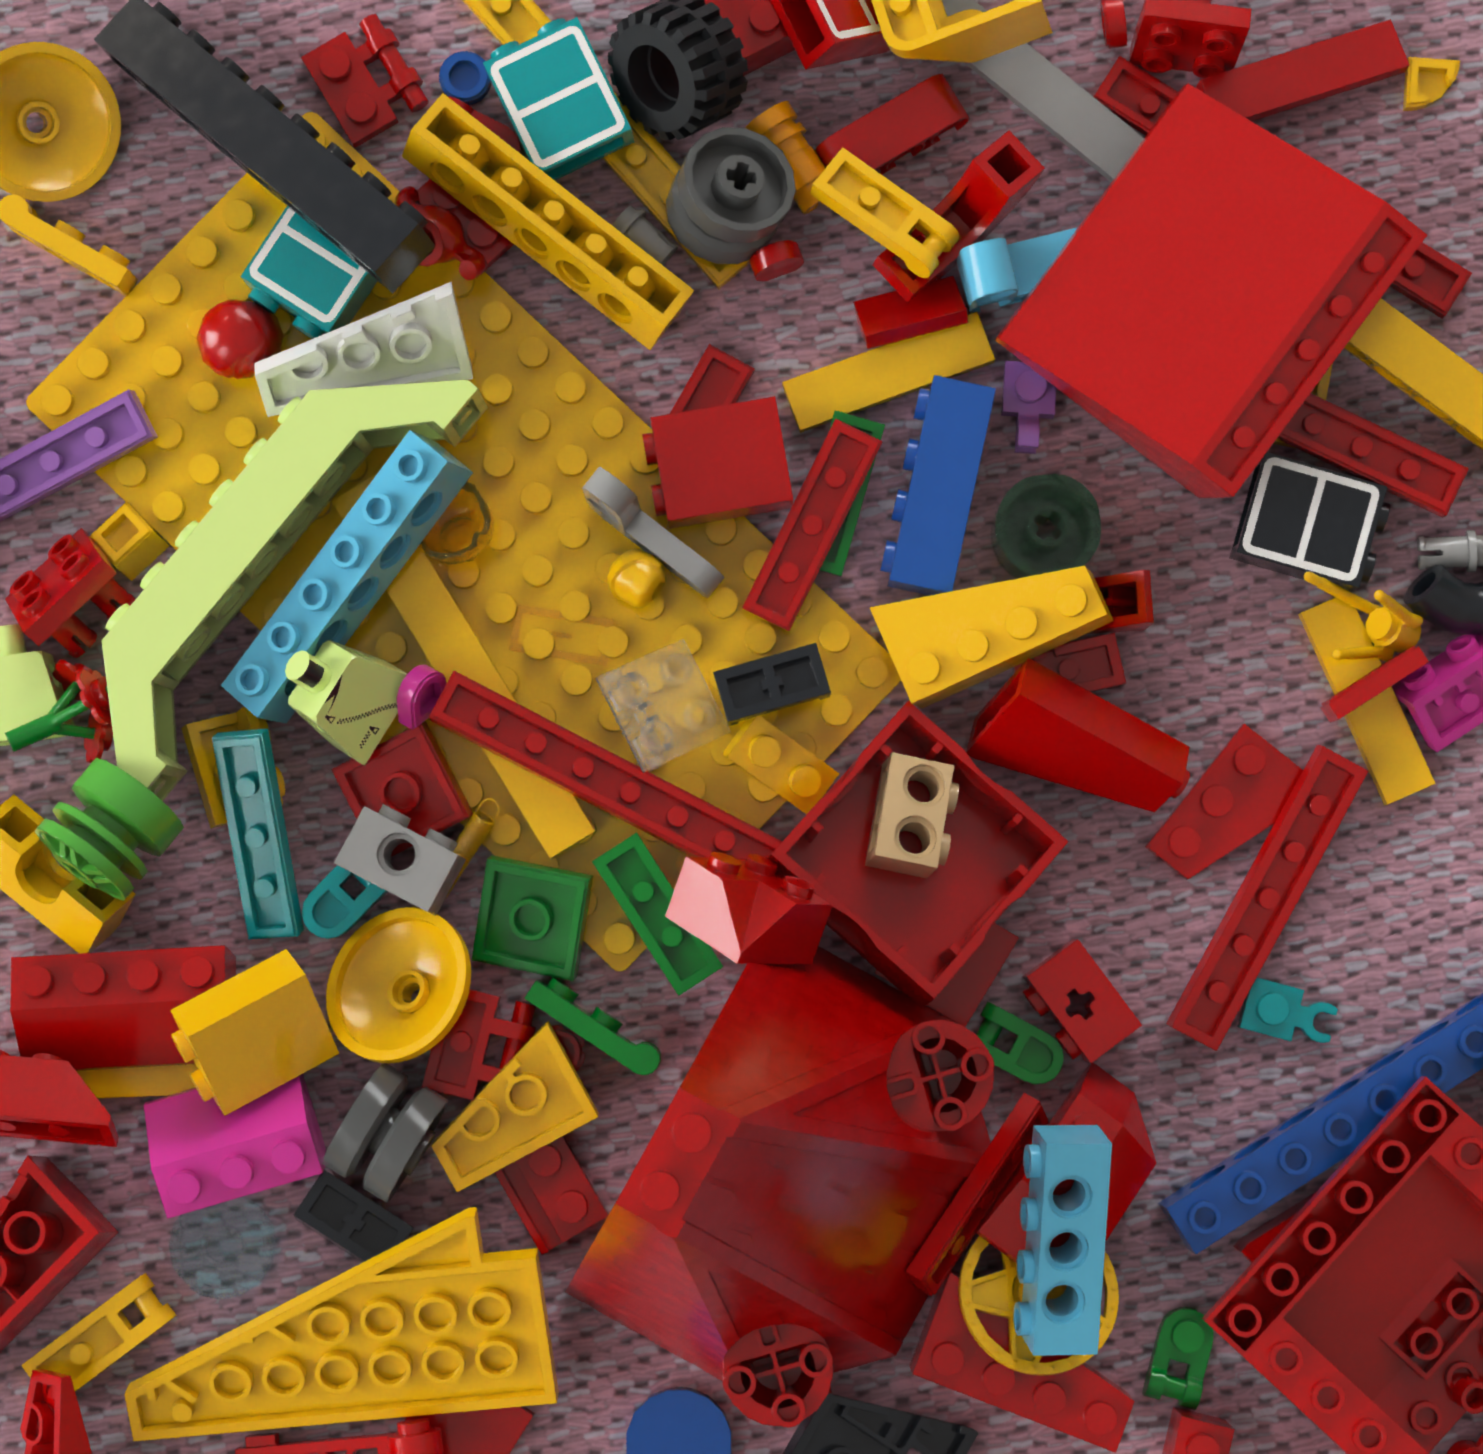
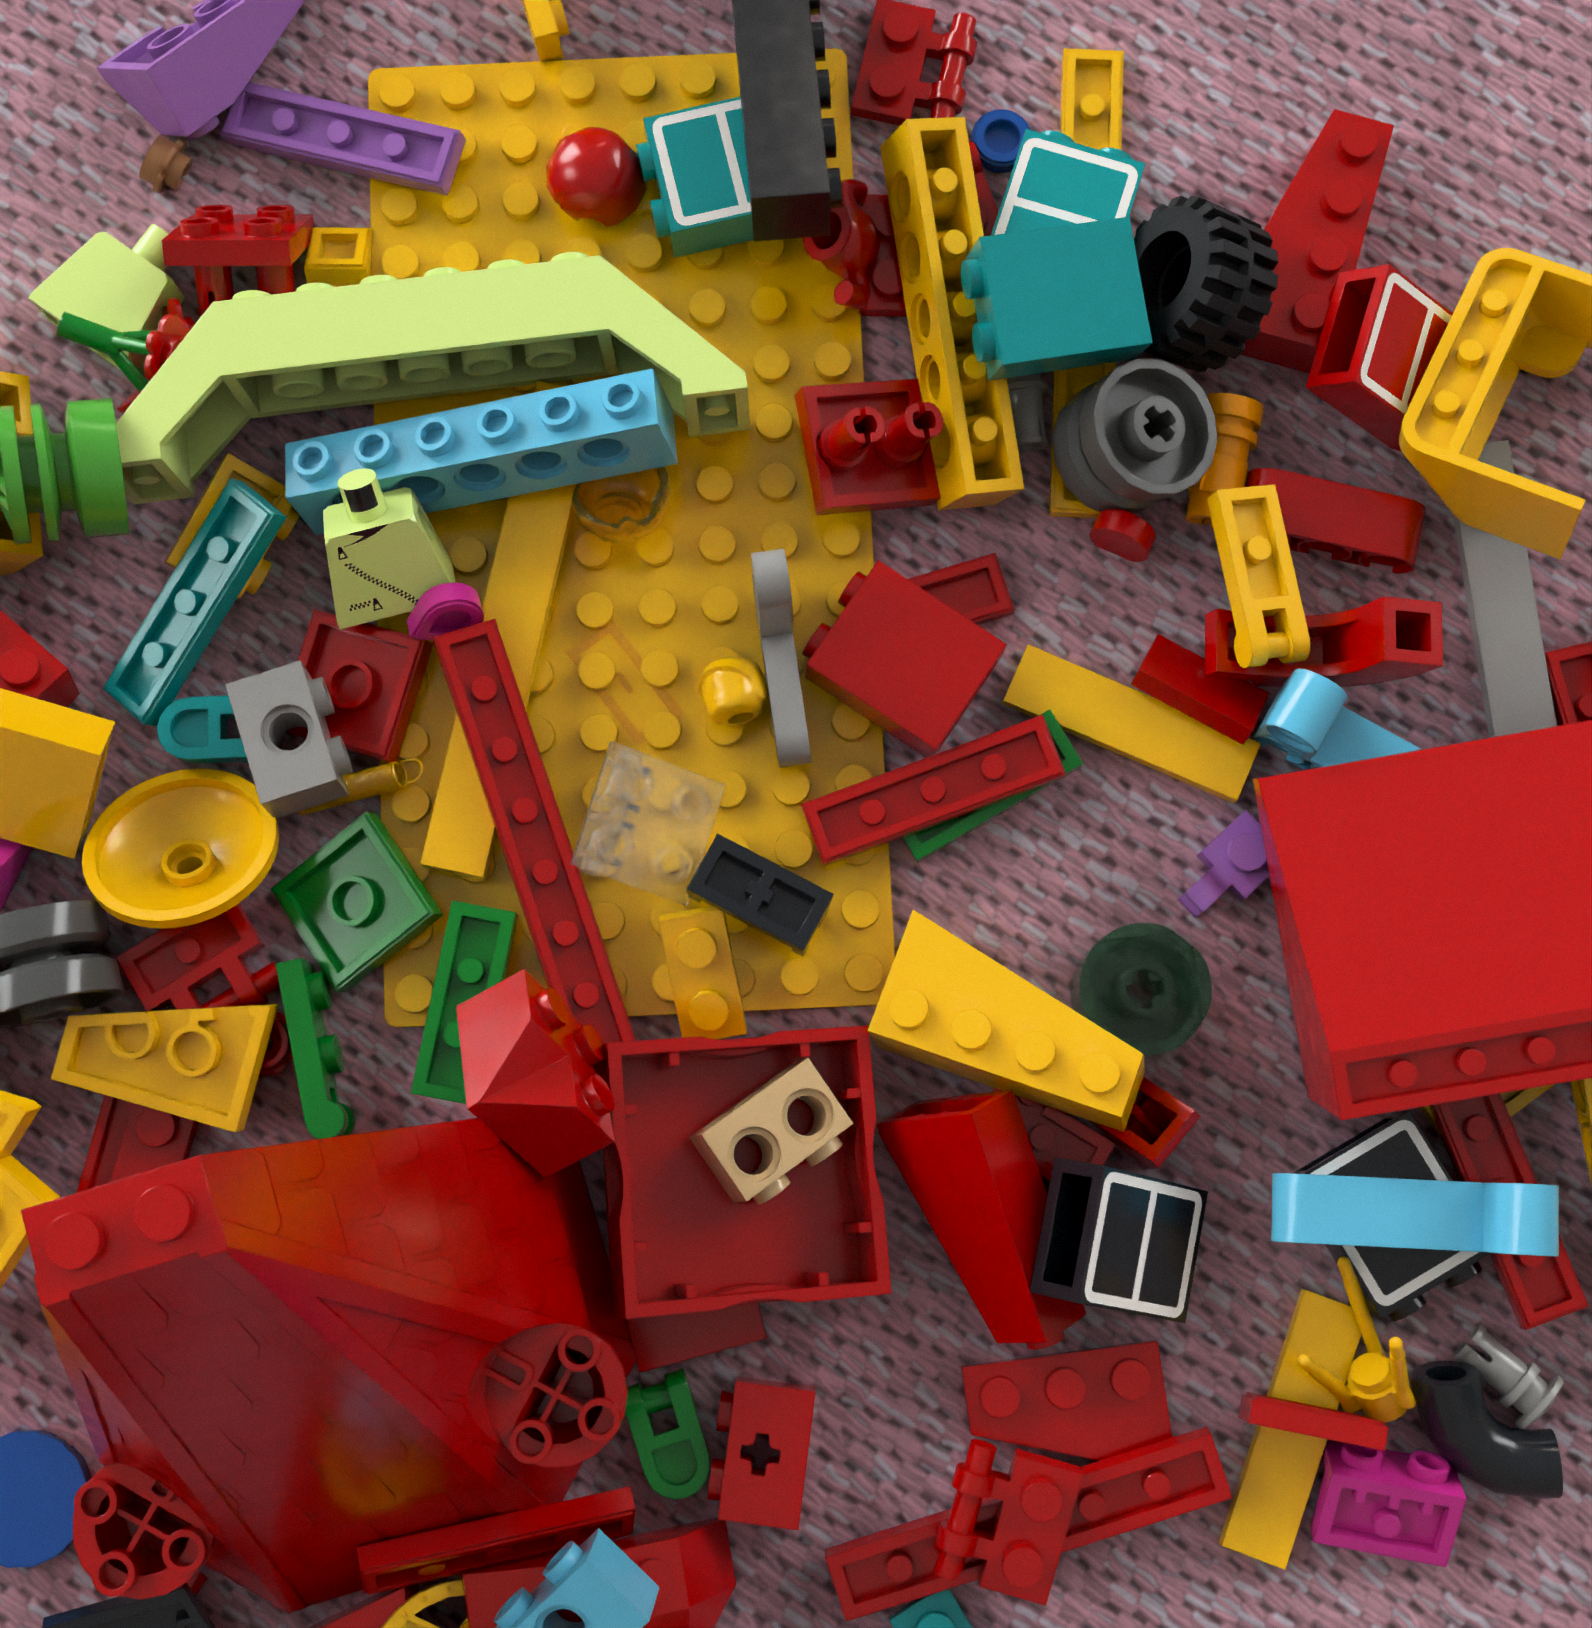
camera: 40 degrees right, 5 degrees down
(397, 345) = (724, 297): white wing -> none
(572, 350) = (869, 445): none -> red plate
(608, 156) = (1056, 298): none -> teal brick
(940, 486) = (1080, 863): blue brick -> none
(1169, 686) = (1119, 1240): none -> black brick
(1269, 897) = (1028, 1526): none -> red plate
(1322, 510) = (1416, 1214): none -> medium azure beam

